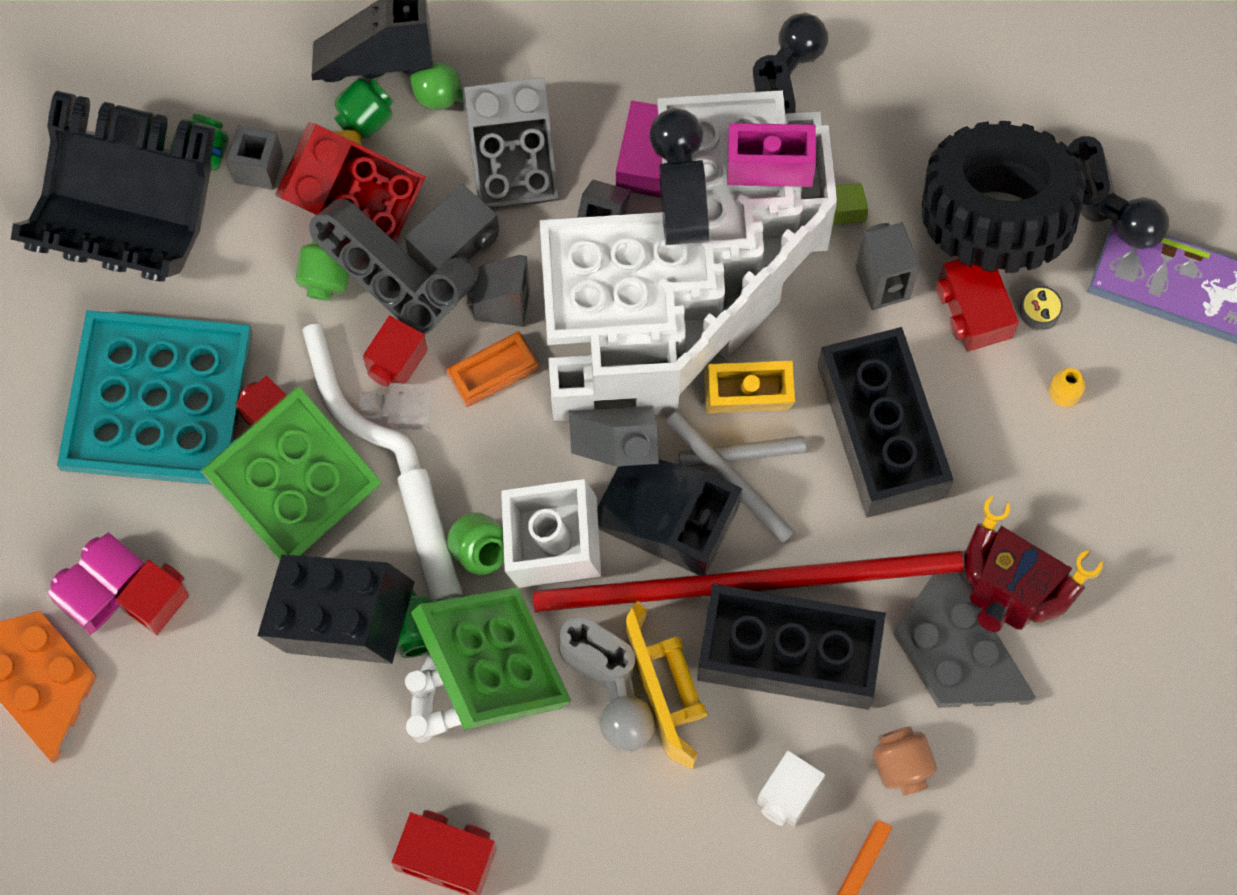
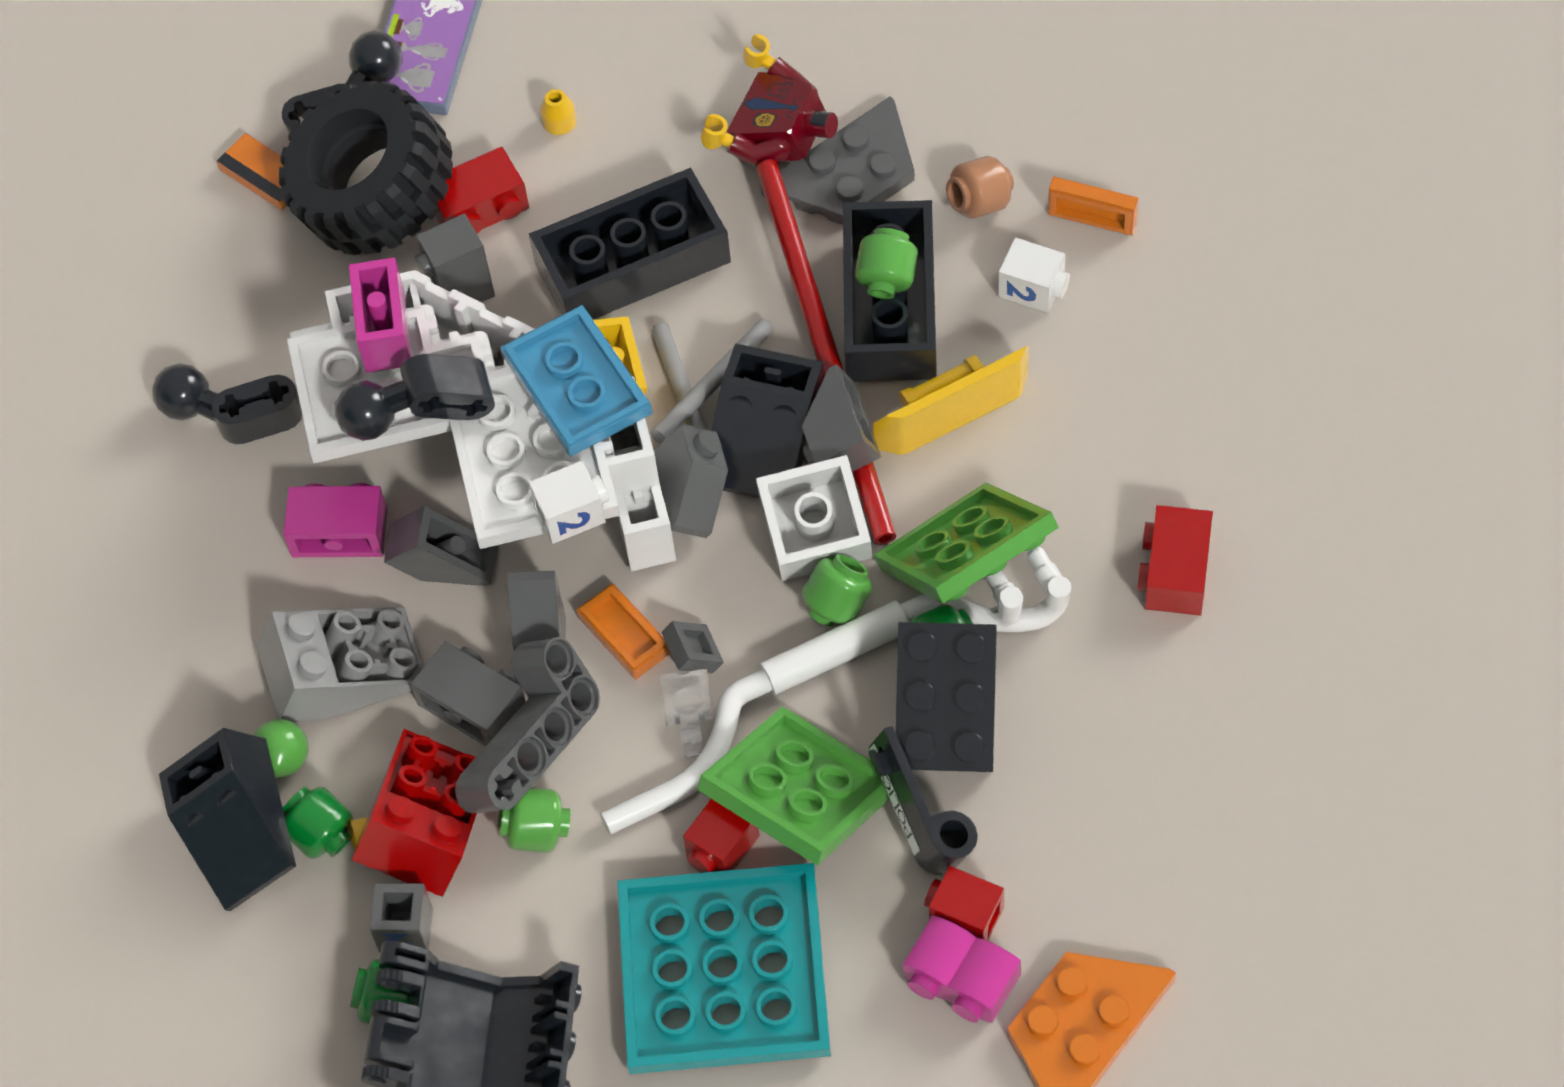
camera: 95 degrees left, 10 degrees down
(215, 583) = (933, 839): none -> black door
(394, 353) = (626, 723): red brick -> none
(455, 417) = (692, 647): none -> dark grey plate
(546, 289) = (569, 501): none -> white brick
(626, 720) = (939, 444): light grey beam -> none
(642, 571) = (839, 423): none -> dark grey slope
(682, 318) = (576, 380): none -> dark azure tile
(792, 631) = (886, 263): none -> bright green head
(1041, 307) = (470, 143): tile -> none
(1055, 115) = (254, 168): none -> orange tile

